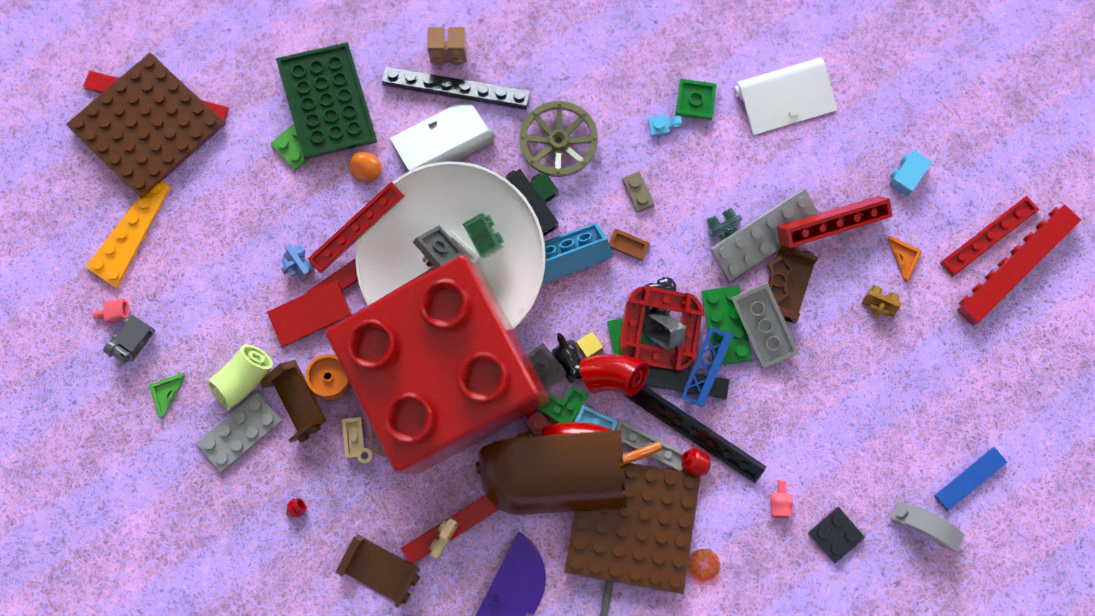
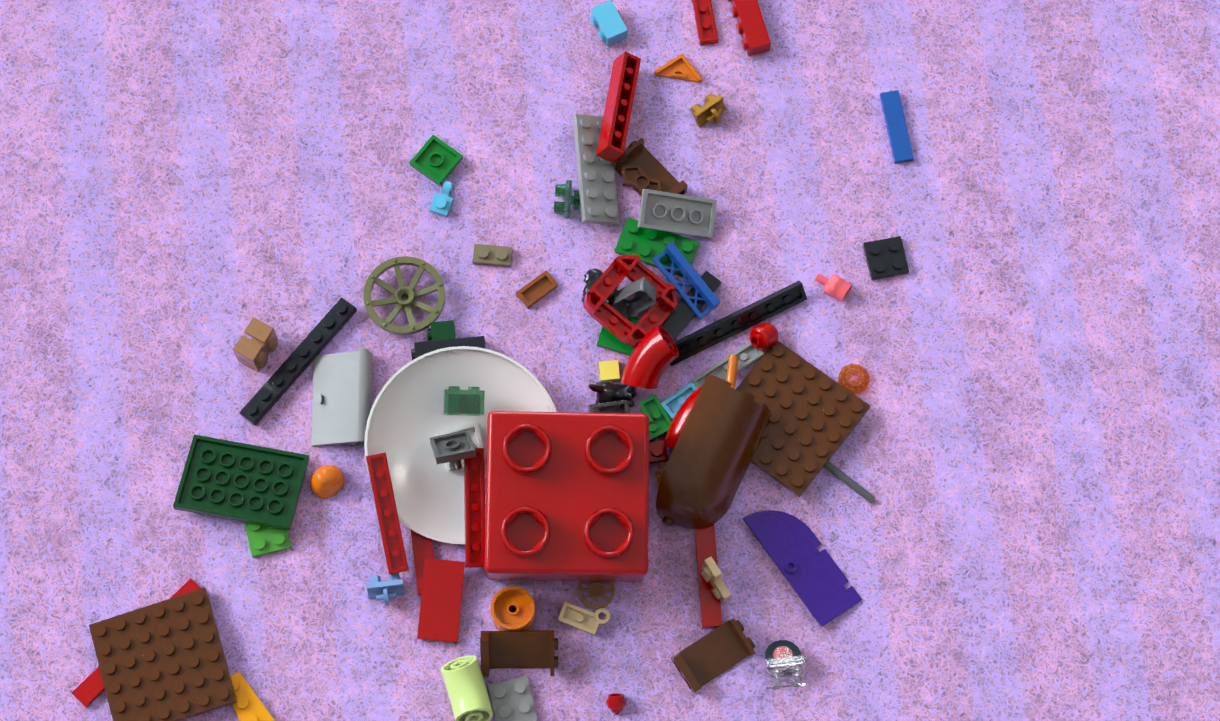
camera: 65 degrees left, 5 degrees down
(575, 251) = (518, 332): dark azure slope -> none
(796, 90) = (473, 83): white door -> none
(929, 524) = (915, 179): light grey arch -> none

